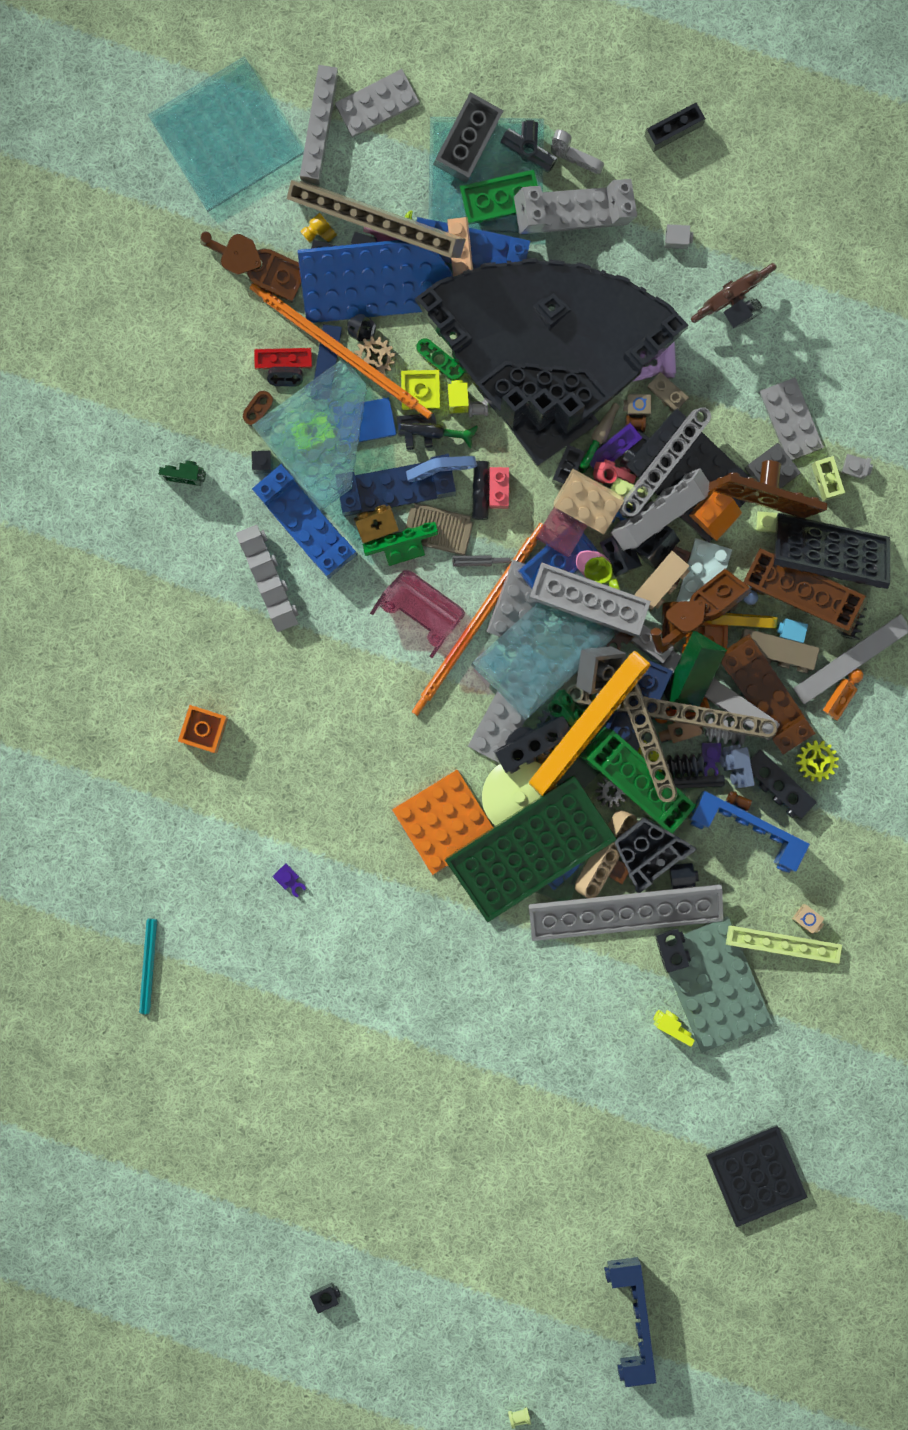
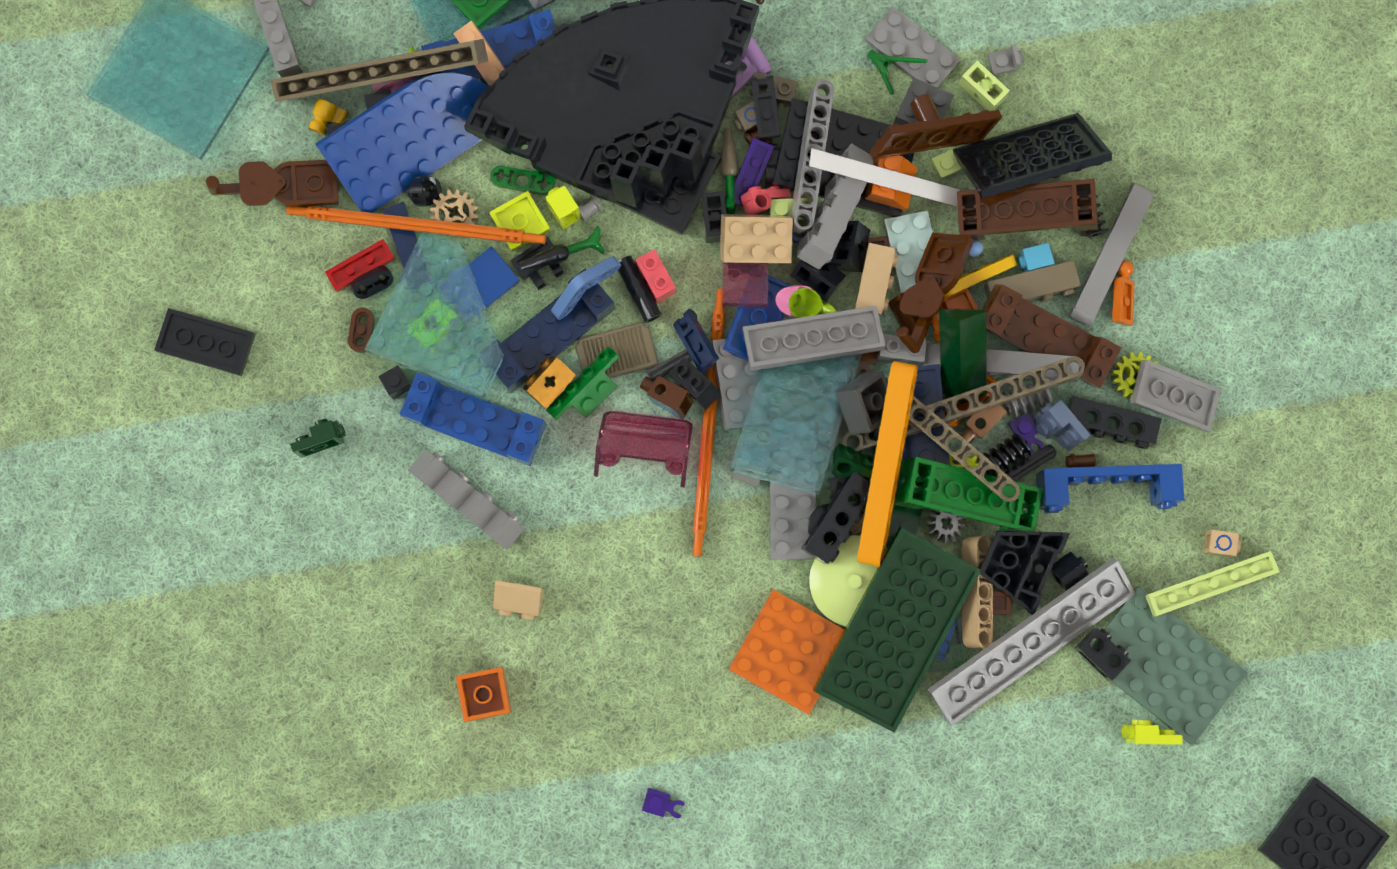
camera: 30 degrees left, 5 degrees down
(137, 353) = (204, 342): none -> black plate
(265, 673) = (518, 599): none -> tan slope
(460, 588) = (674, 400): none -> reddish brown torso
(483, 585) = (696, 383): none -> black brick
(501, 553) = (695, 341): none -> dark blue plate
(652, 405) = (765, 108): none -> black plate
(709, 507) = (883, 177): none -> white sticker
(762, 417) = (883, 61): none -> green plant
(837, 791) = (1175, 395): none -> light grey plate

